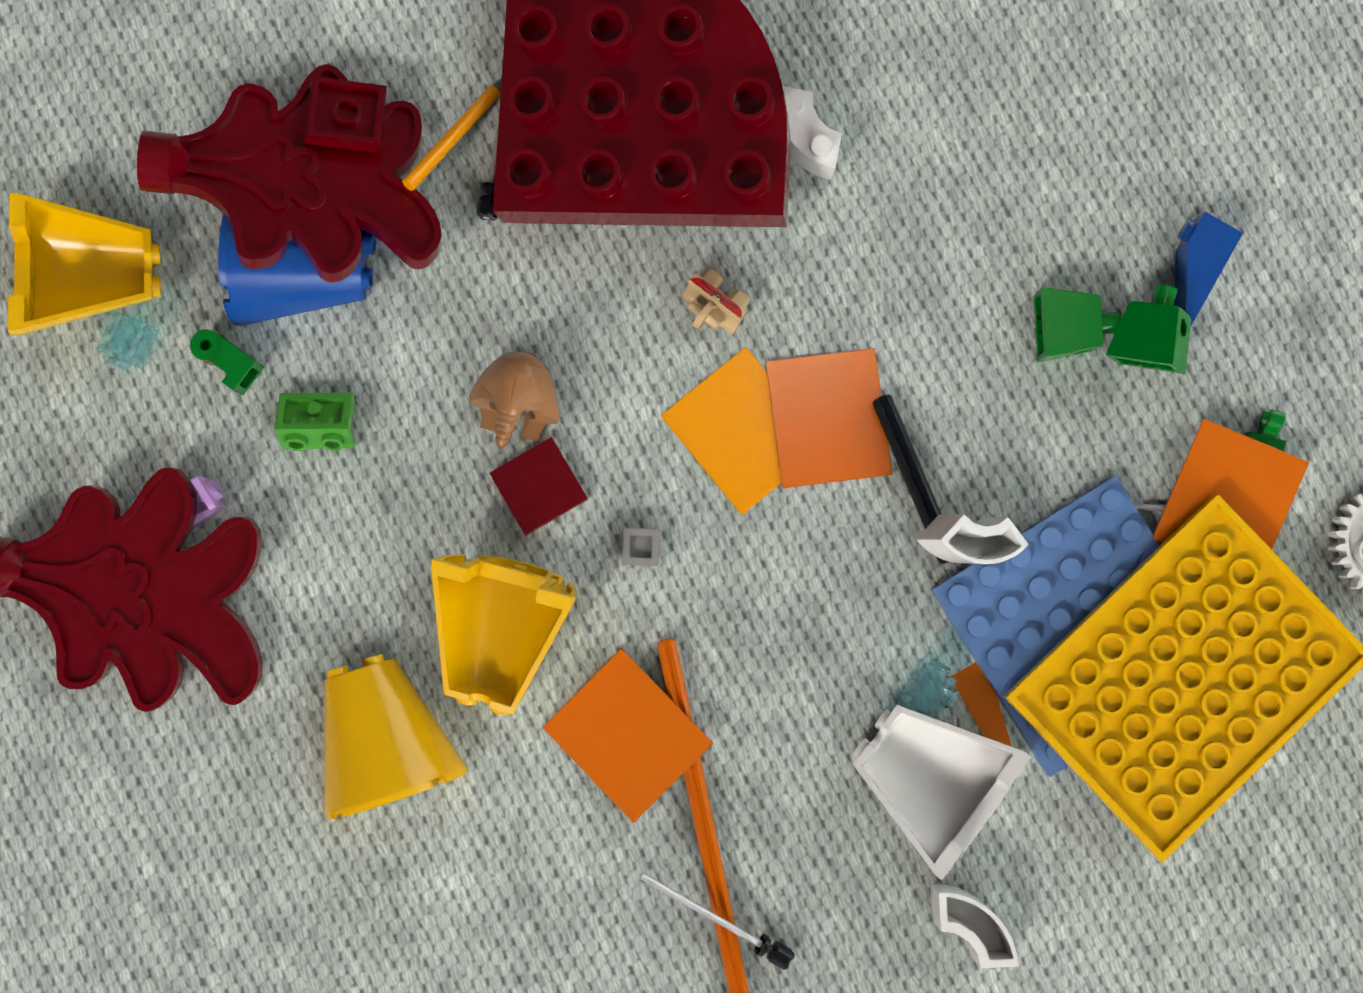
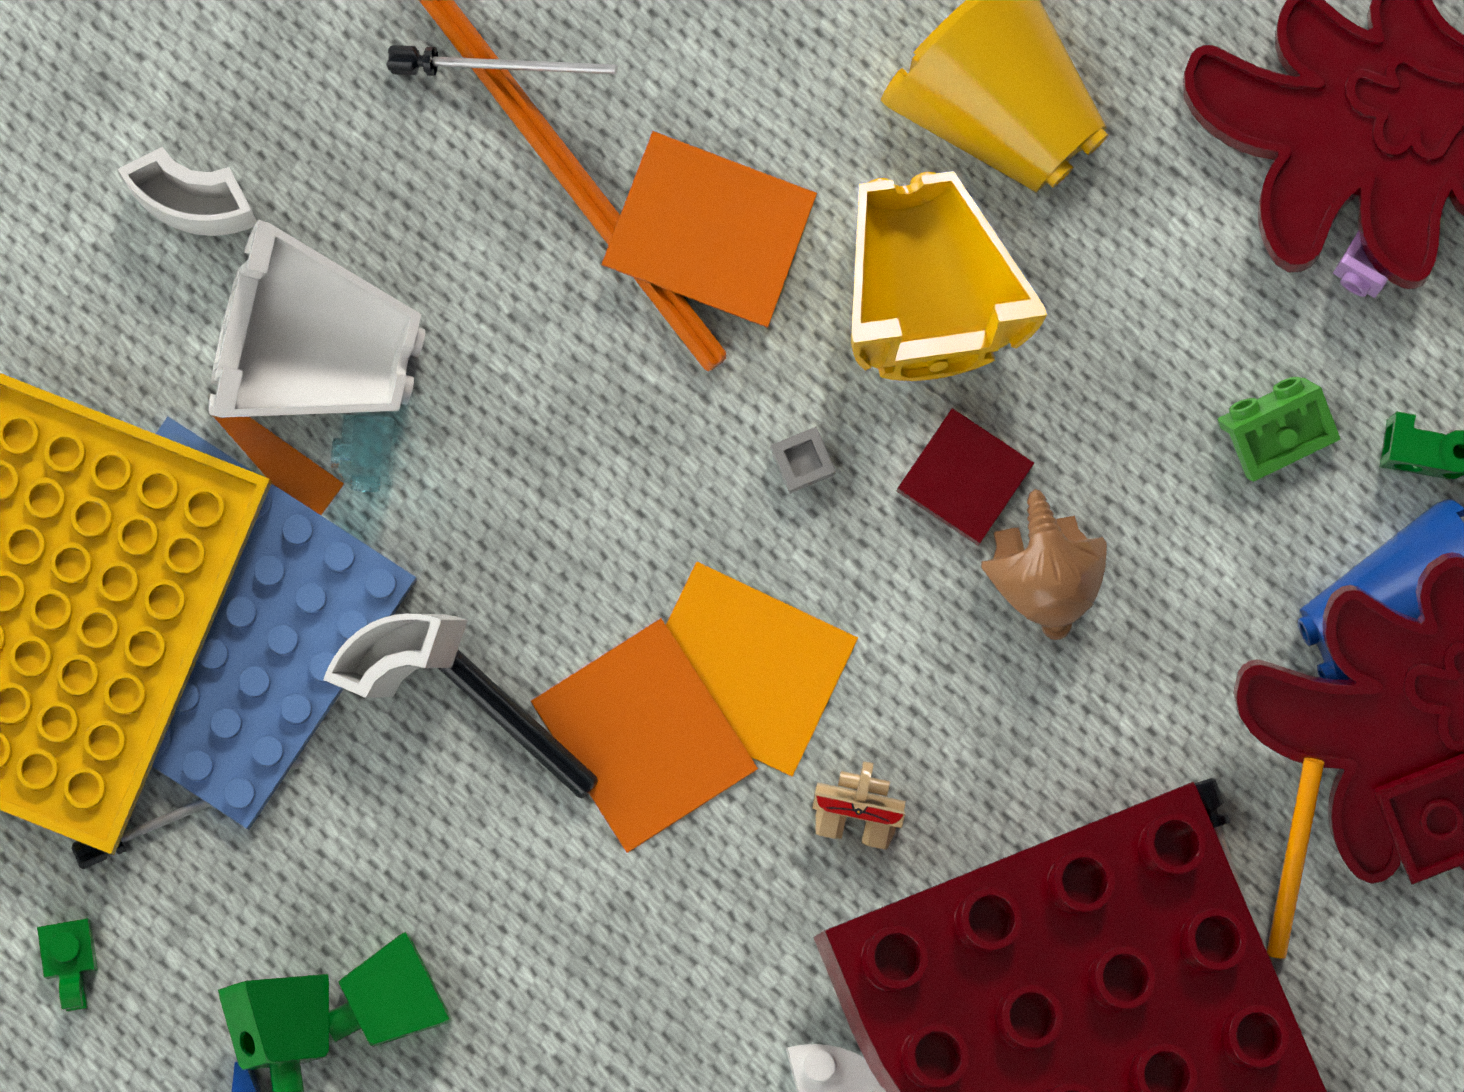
camera: 155 degrees right, 5 degrees down
(1245, 473) = (82, 899): orange piece -> none

